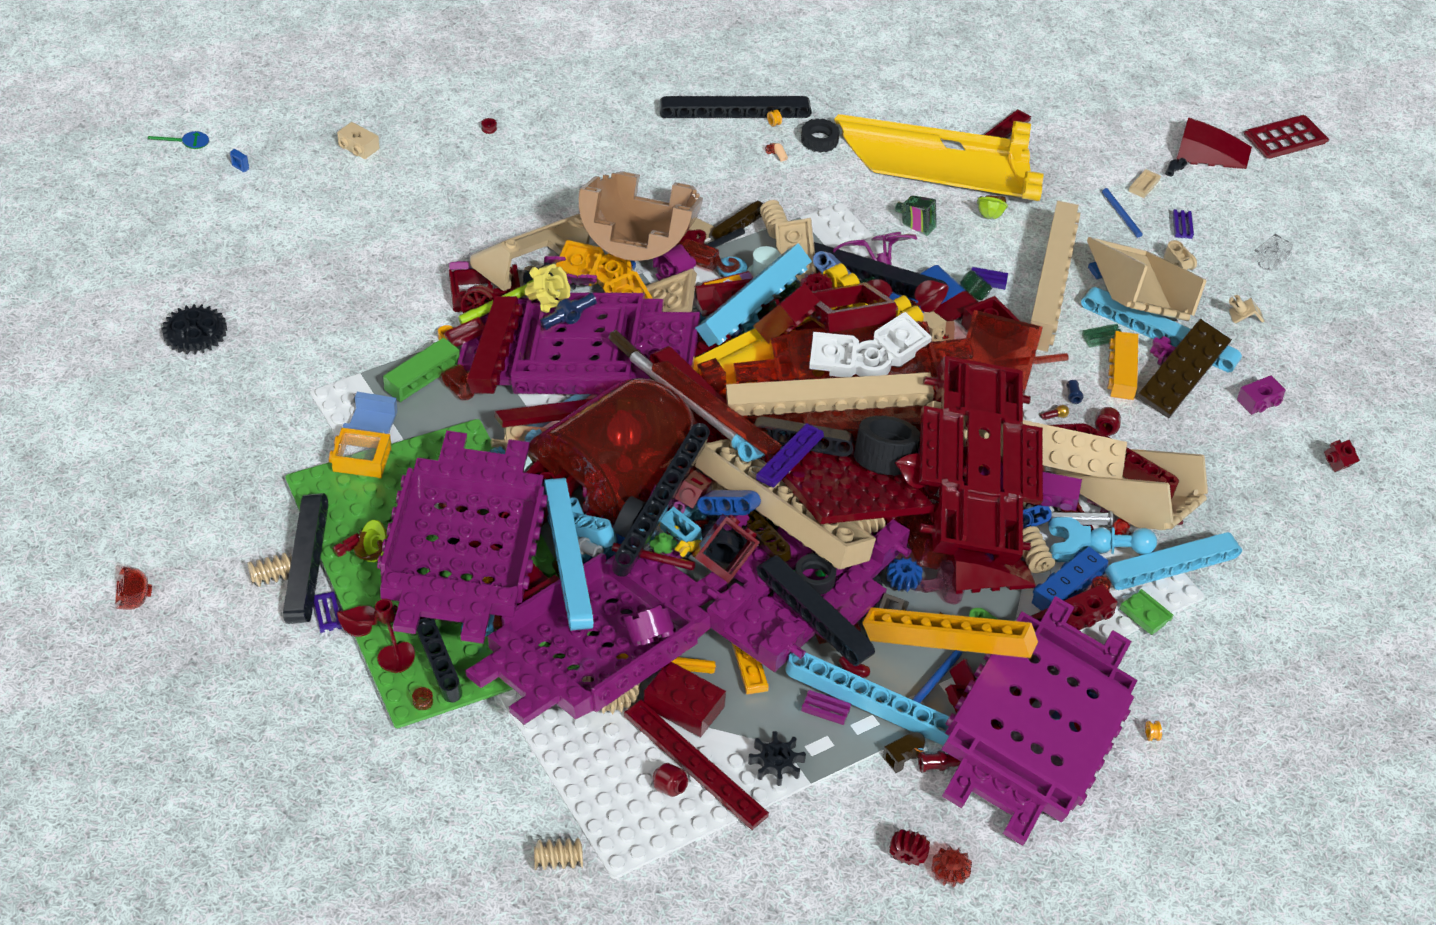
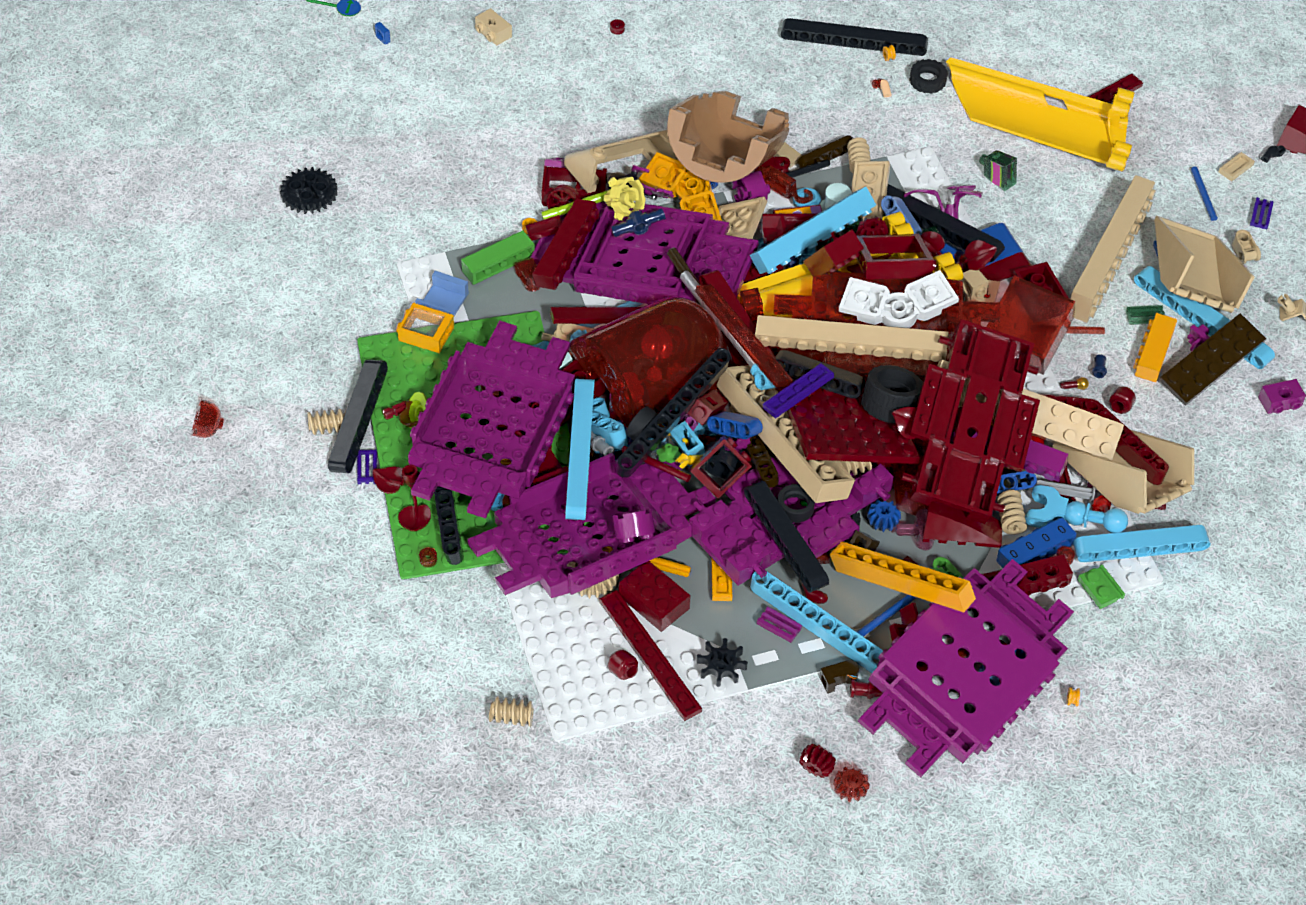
camera: 15 degrees right, 5 degrees up
(976, 285) = (1034, 248): clear green gear -> none
(992, 206) = (1075, 170): lime piece -> none
(994, 278) = (1051, 242): dark purple tile -> none

